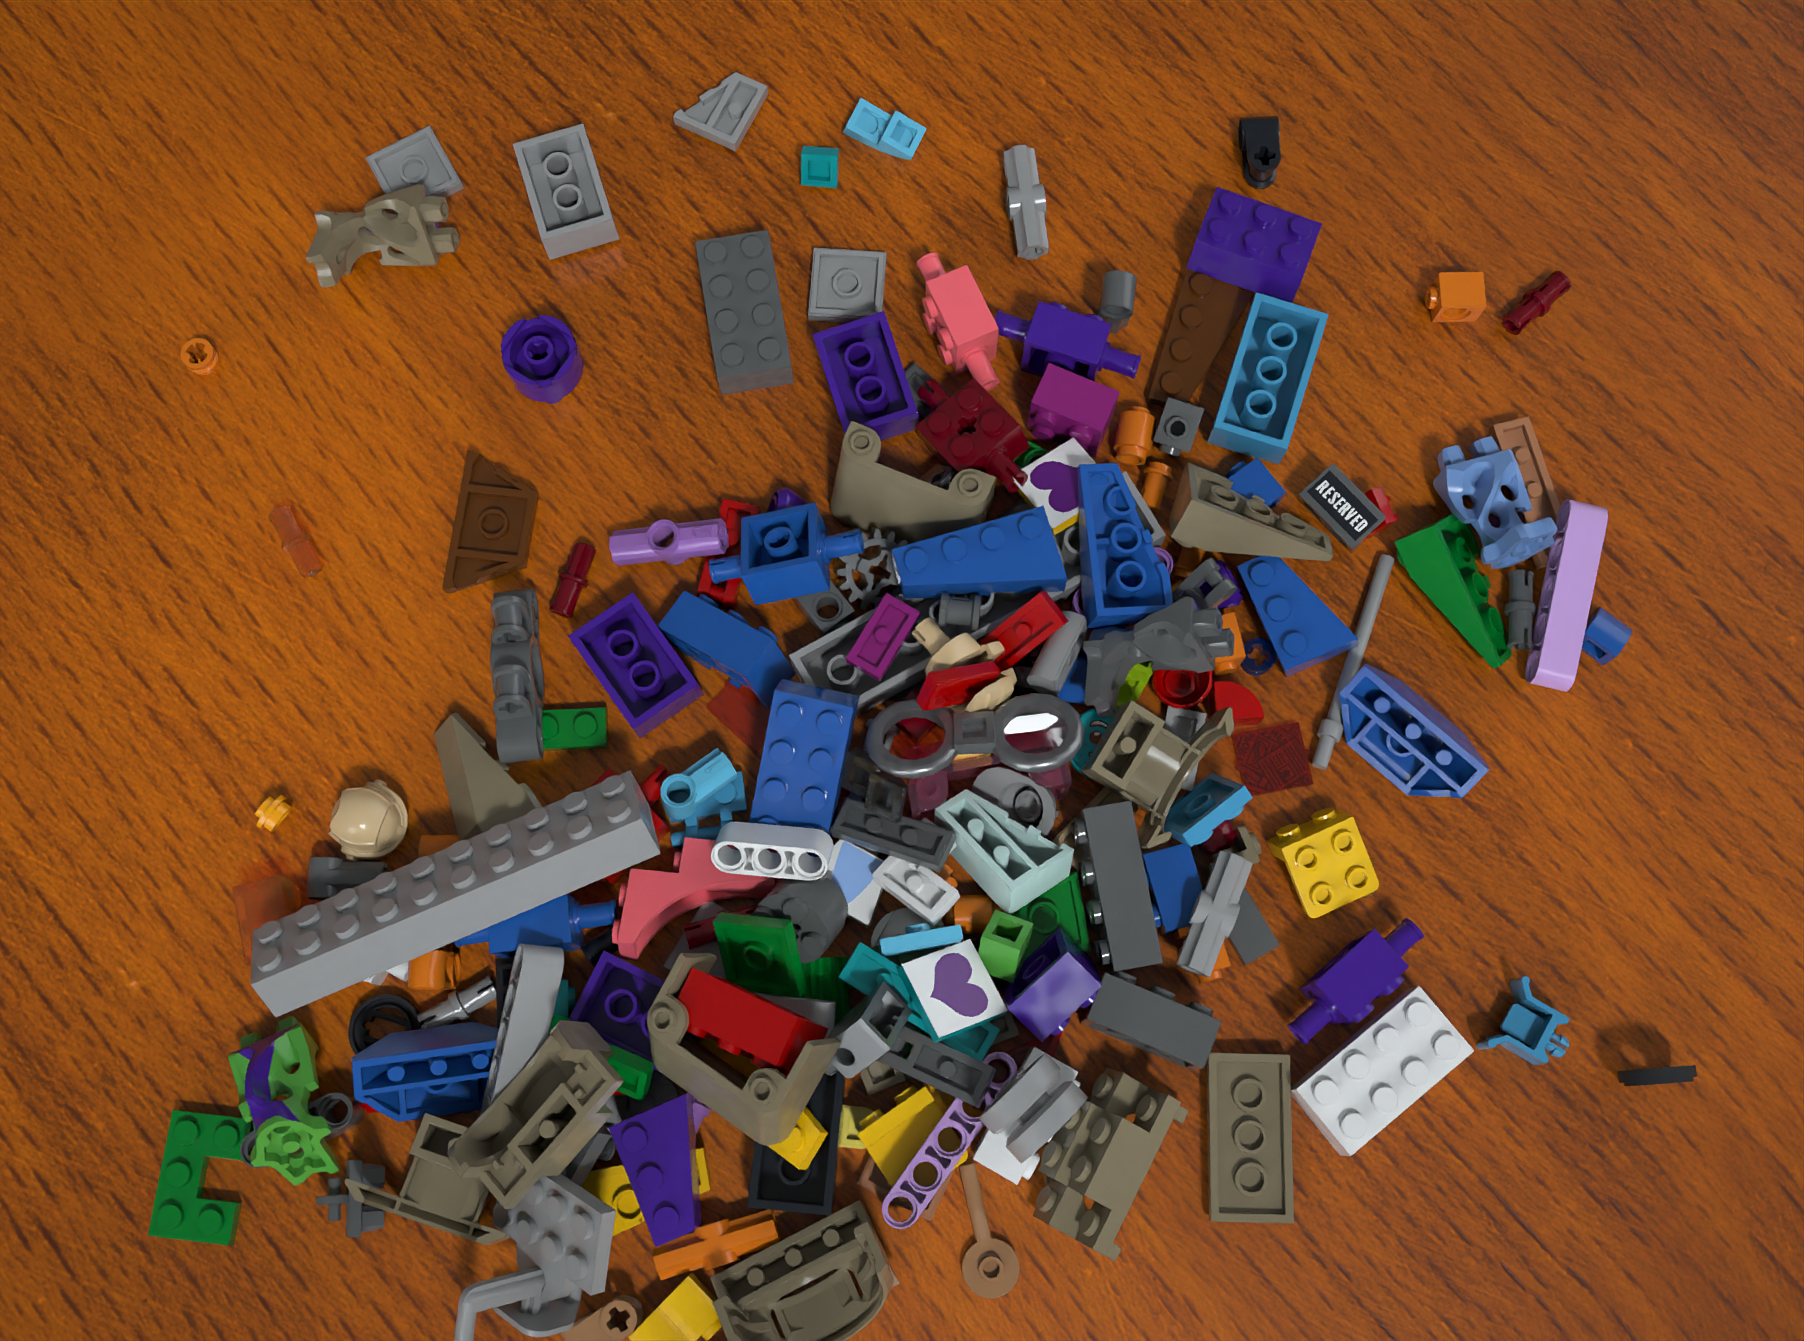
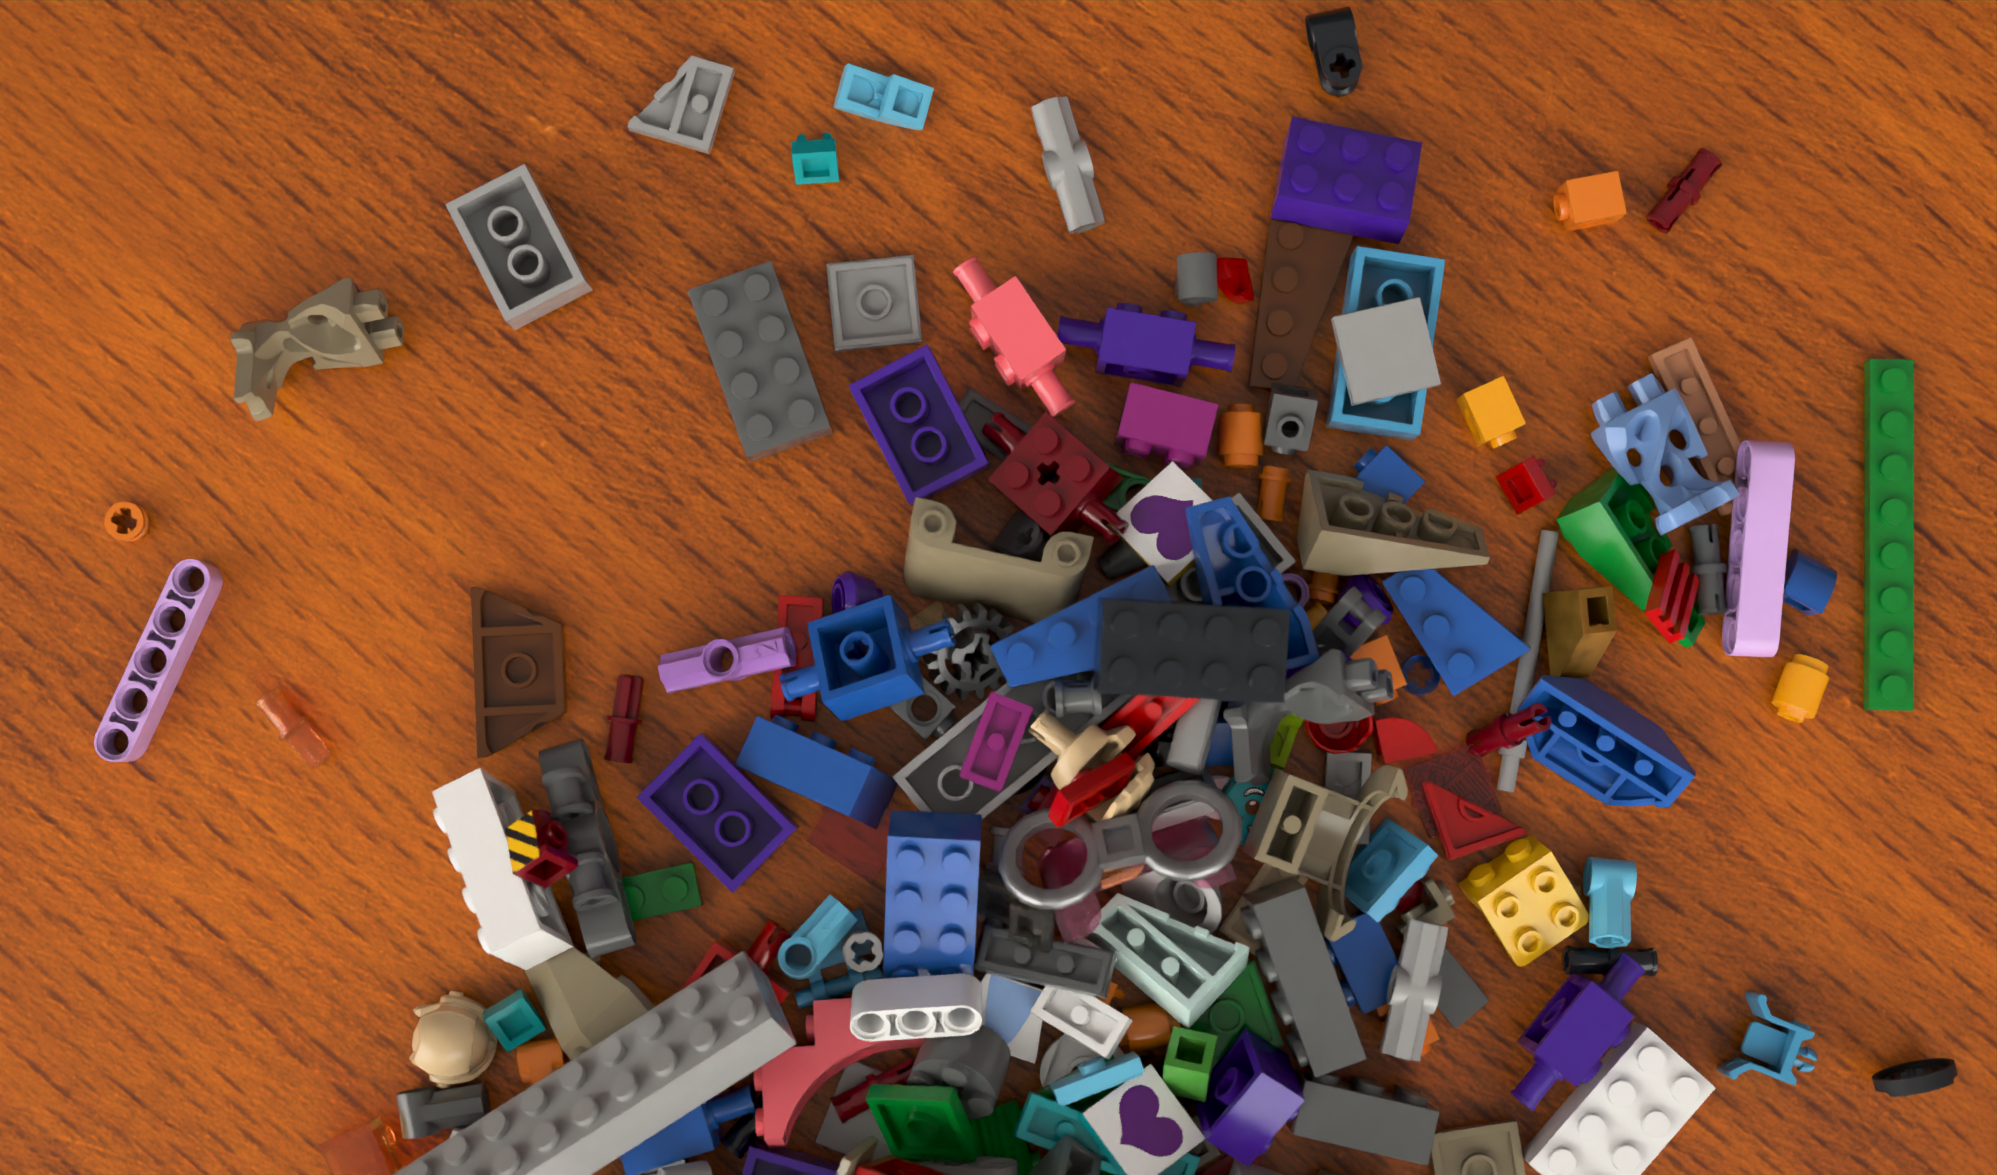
camera: 15 degrees left, 10 degrees up
(196, 486) = (139, 671): none -> lavender beam
(272, 813) = (342, 1048): light orange plate -> none
(413, 162) = (329, 242): light grey tile -> none
(424, 811) = (514, 1020): none -> teal tile
(439, 675) = (515, 915): none -> white brick
(480, 647) = (539, 848): none -> dark red brick
(542, 358) = (532, 438): dark purple brick -> none
(735, 788) = (864, 964): none -> light grey bush
(1064, 573) = (1191, 650): none -> black brick
(1148, 311) = (1234, 279): none -> red tile
(1267, 376) = (1385, 351): none -> light grey tile
(1280, 789) = (1465, 825): none -> red tile
(1329, 709) = (1508, 730): none -> dark red pin
(1341, 507) = (1491, 487): panel -> none
(1351, 448) = (1491, 413): none -> light orange brick
(1364, 921) = (1600, 960): none -> black pin
(1400, 867) = (1610, 892): none -> medium azure piece
(1402, 635) = (1578, 629): none -> pearl gold slope
(1492, 624) = (1673, 596): none -> red tile
(1590, 721) = (1800, 688): none -> light orange brick
(1680, 611) = (1889, 535): none -> green plate

